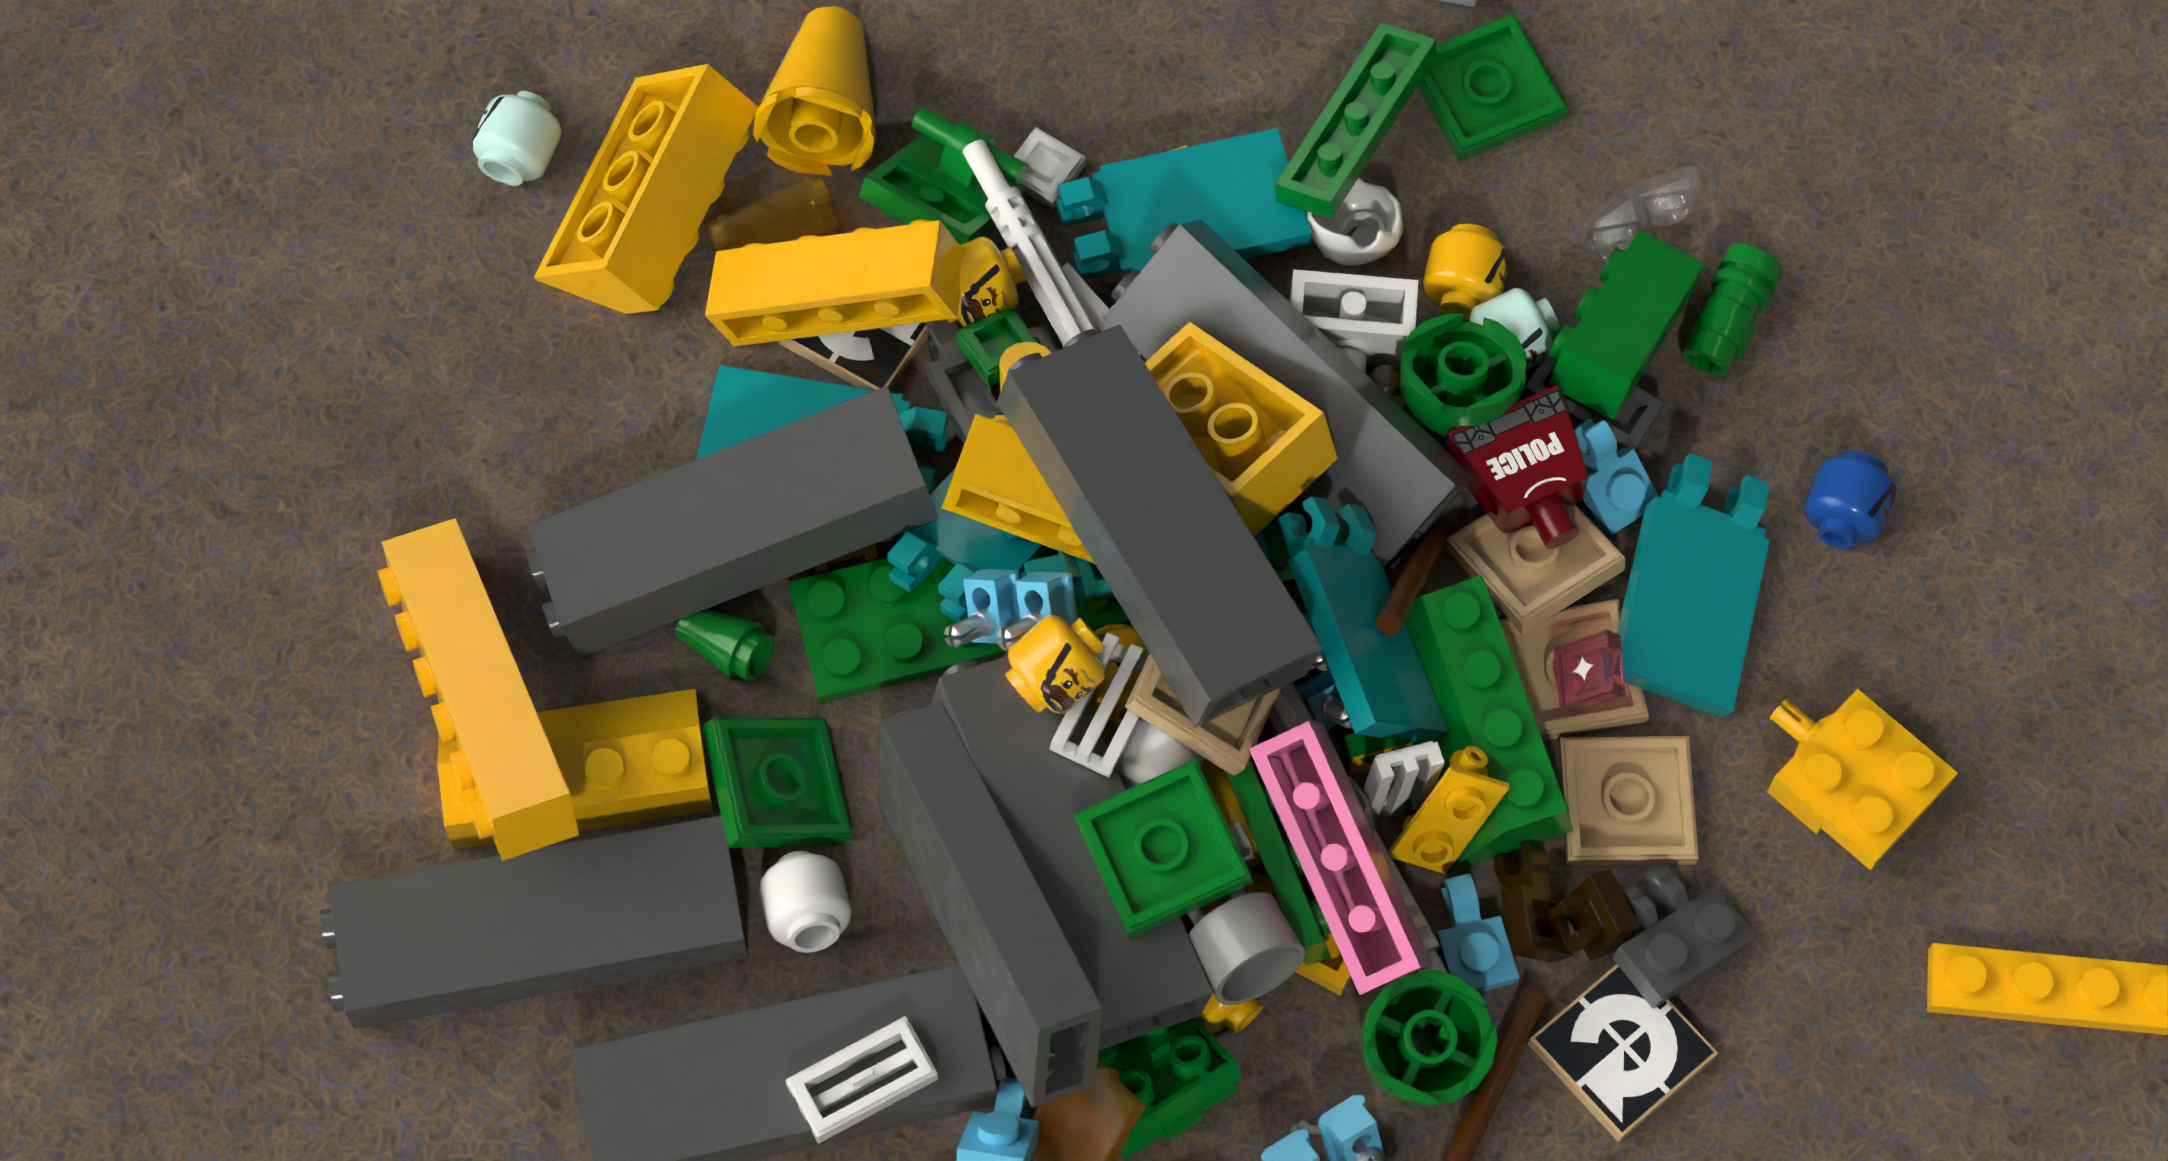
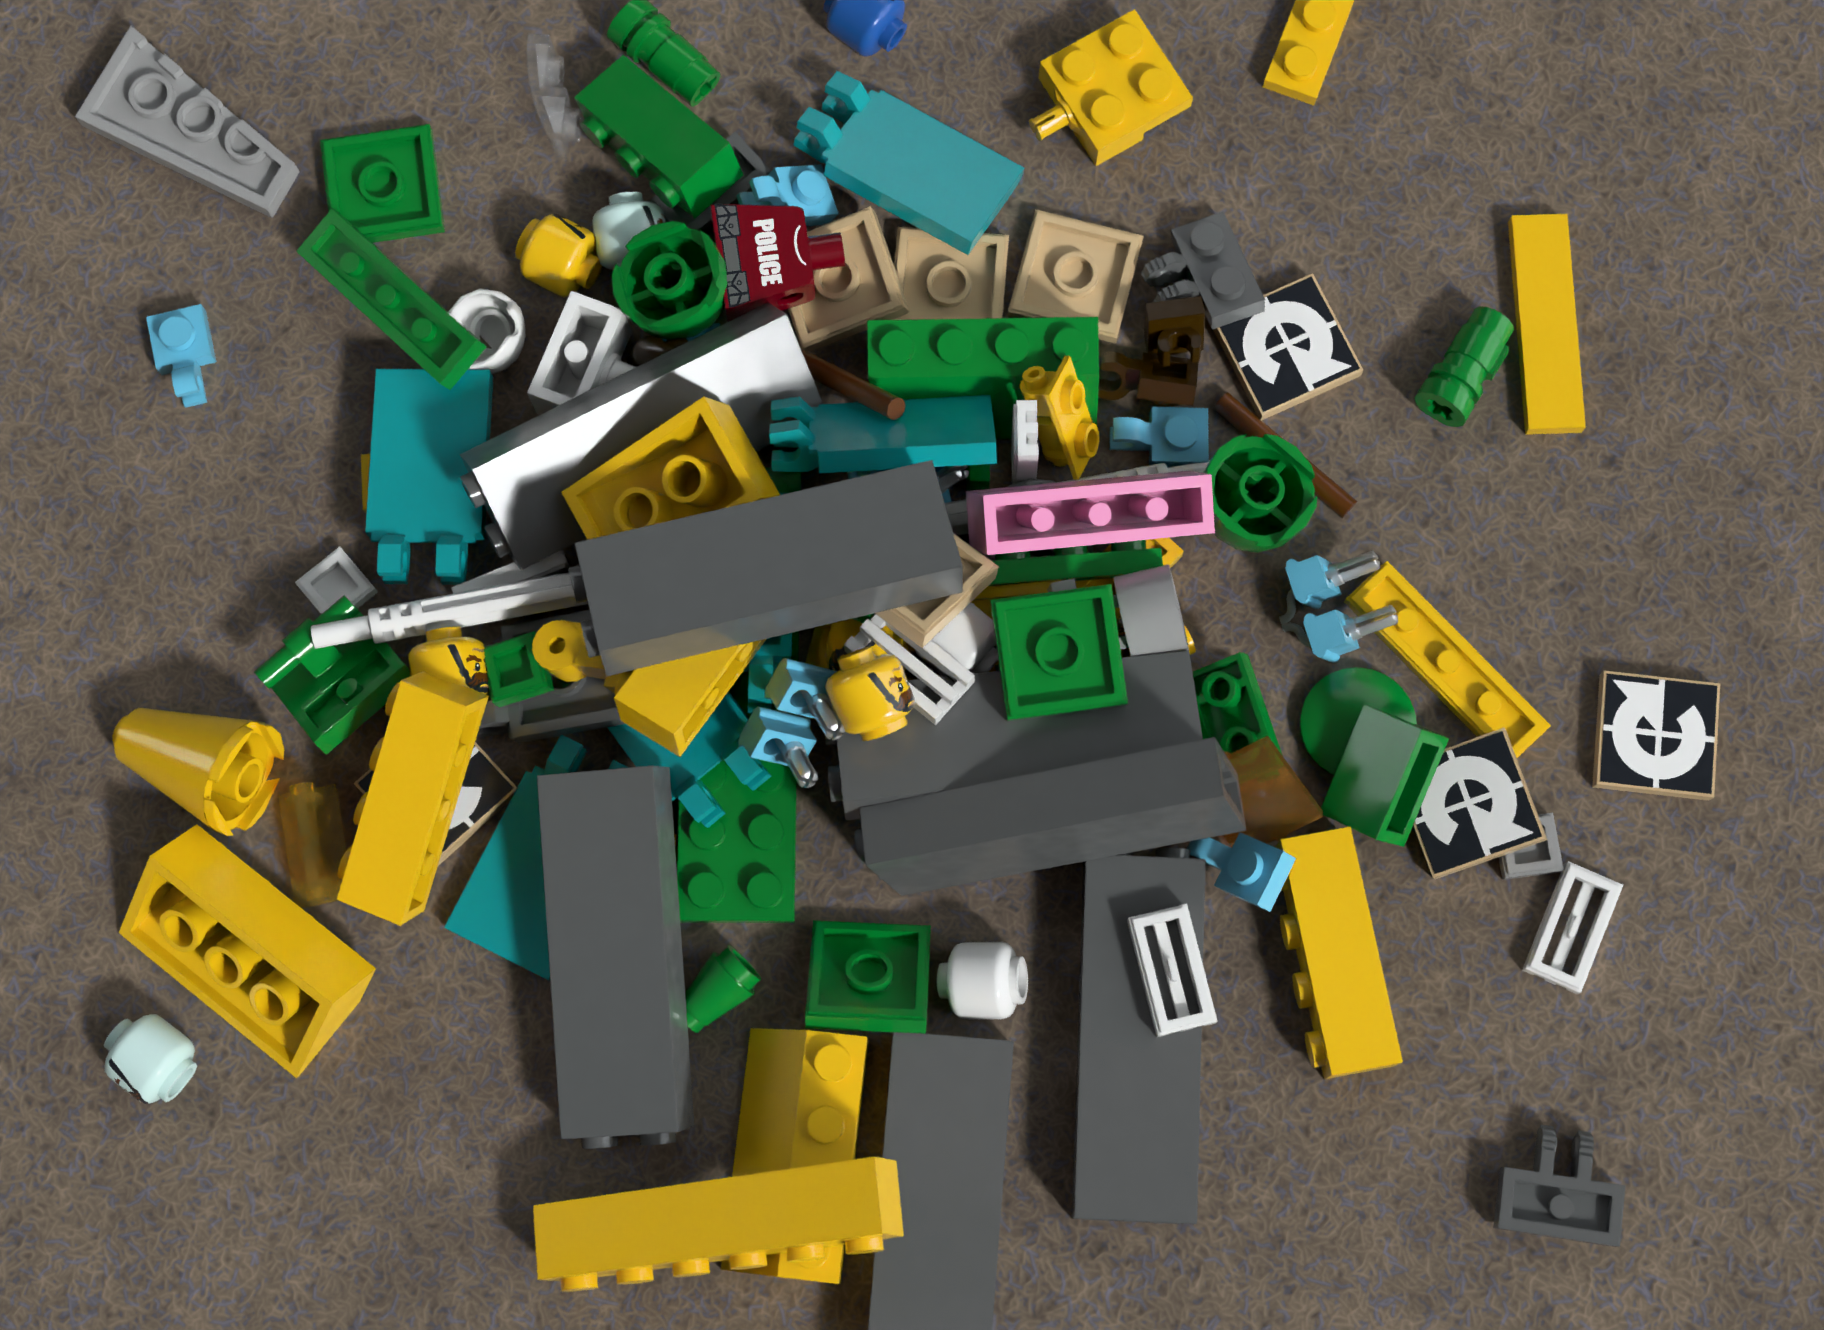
camera: 70 degrees left, 10 degrees up
(1589, 671) = (966, 265): clear pink tile -> none

